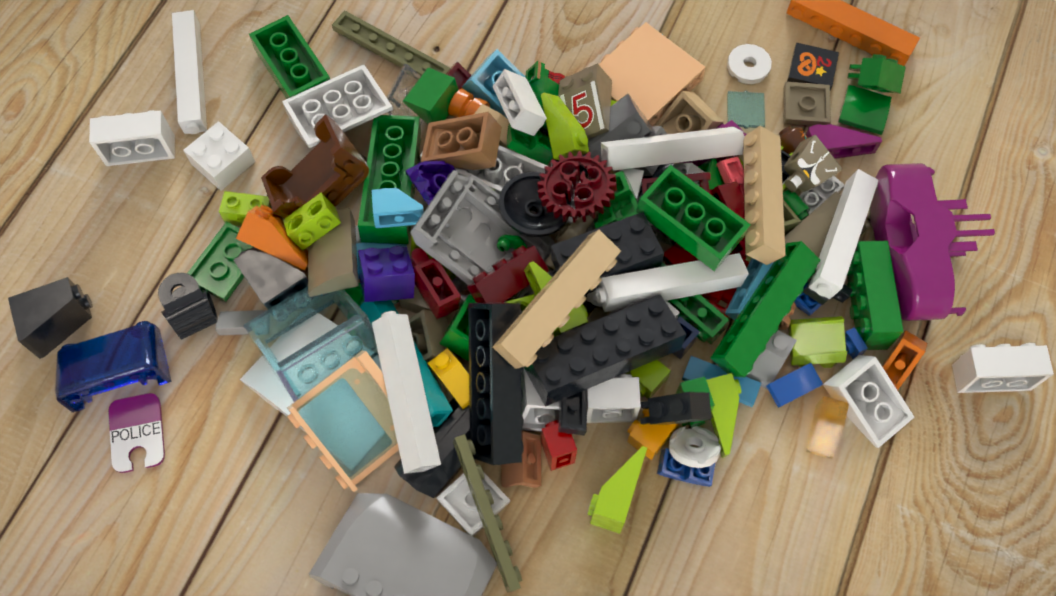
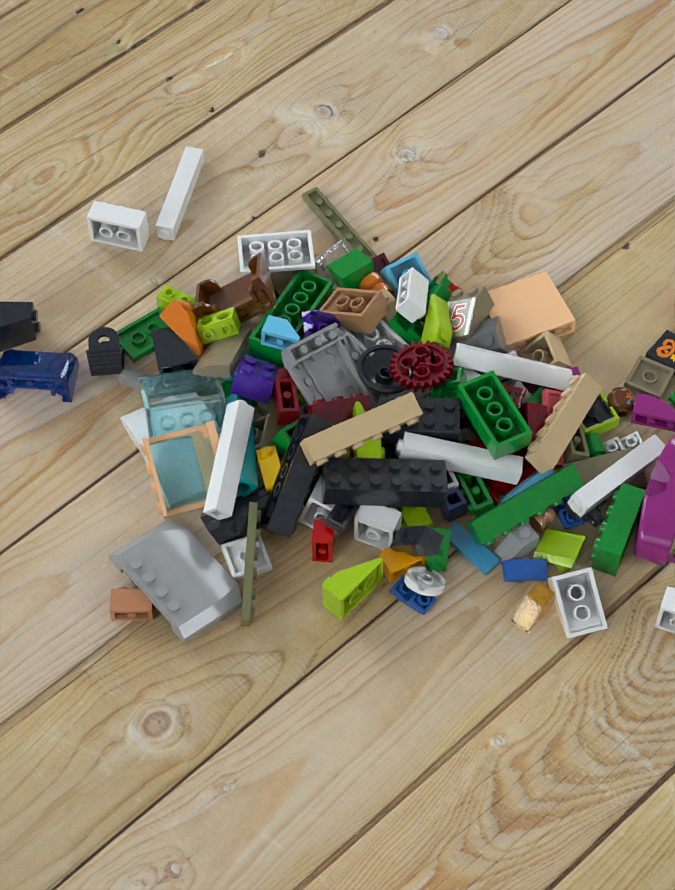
camera: 25 degrees right, 10 degrees down
(136, 424) = (33, 420): piece -> none
(219, 155) = (174, 260): white brick -> none
(288, 57) = (257, 205): green brick -> none
(510, 241) = (353, 388): green arm -> none
(529, 470) = (295, 547): nougat panel -> none
(725, 394) = (459, 563): lime slope -> none
(746, 109) = (599, 365): clear light blue piece -> none
(752, 54) = (621, 324): white tile -> none
(810, 165) = (618, 420): dark tan torso -> none
(854, 343) = (586, 558): blue plate -> none
(904, 358) = (619, 584): orange slope -> none

